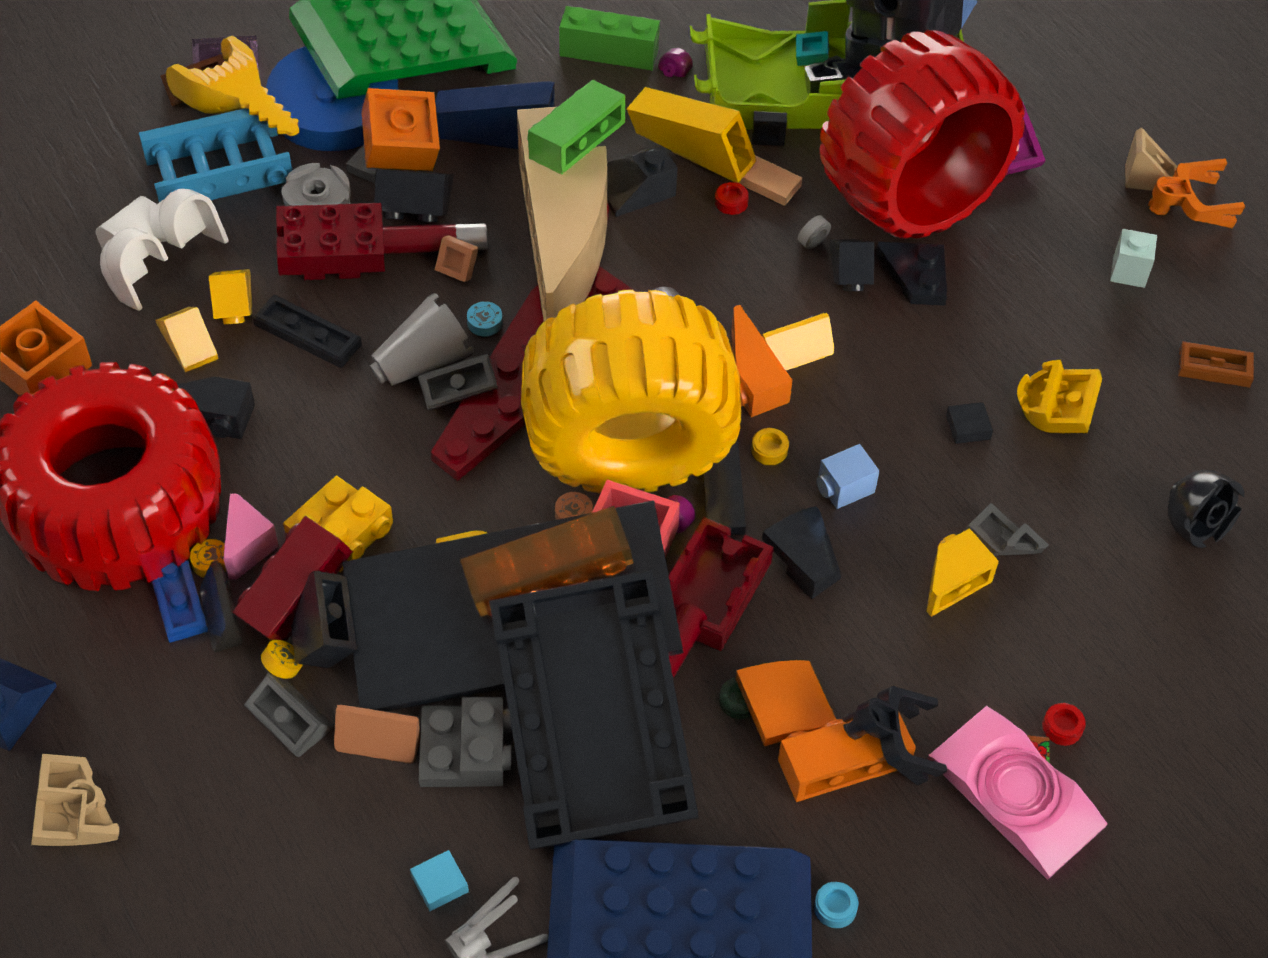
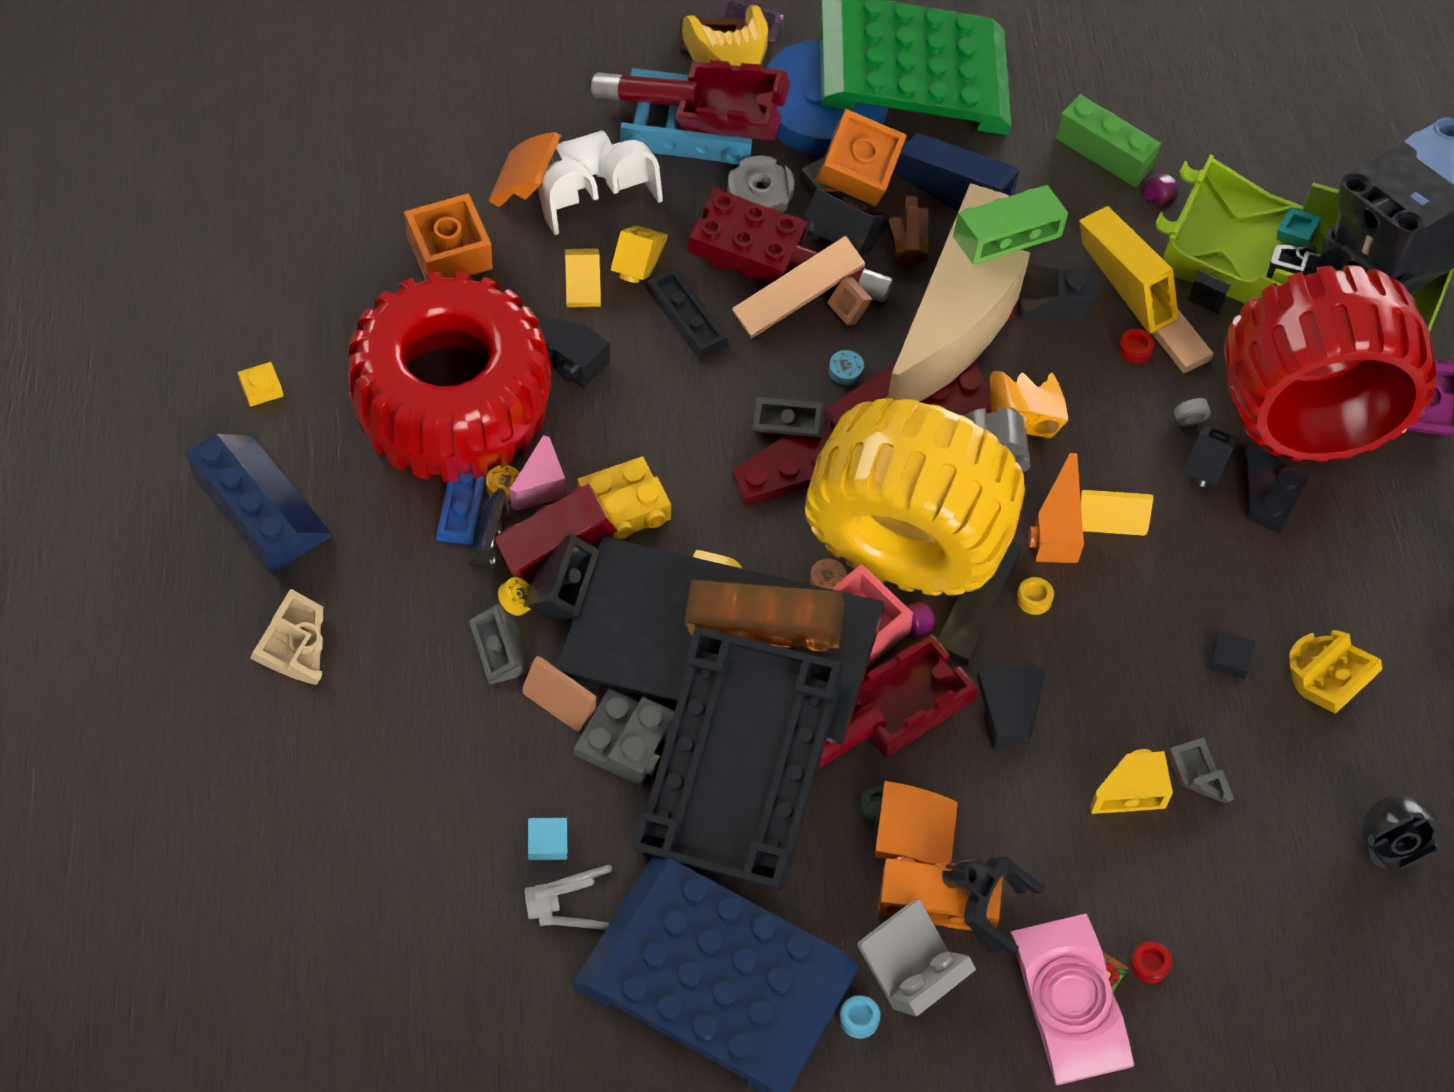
camera: 25 degrees right, 5 degrees up
(79, 259) = (524, 168): none -> orange slope
(232, 128) = (713, 100): none -> dark red piece
(403, 264) = (798, 287): none -> light nougat tile
(421, 344) = (773, 369): light grey cone -> none
(479, 179) = (912, 240): none -> reddish brown rock
(684, 273) = (1040, 407): none -> light orange piece
(847, 476) = (1085, 654): light blue brick -> none
(859, 827) = (913, 960): none -> light grey bracket

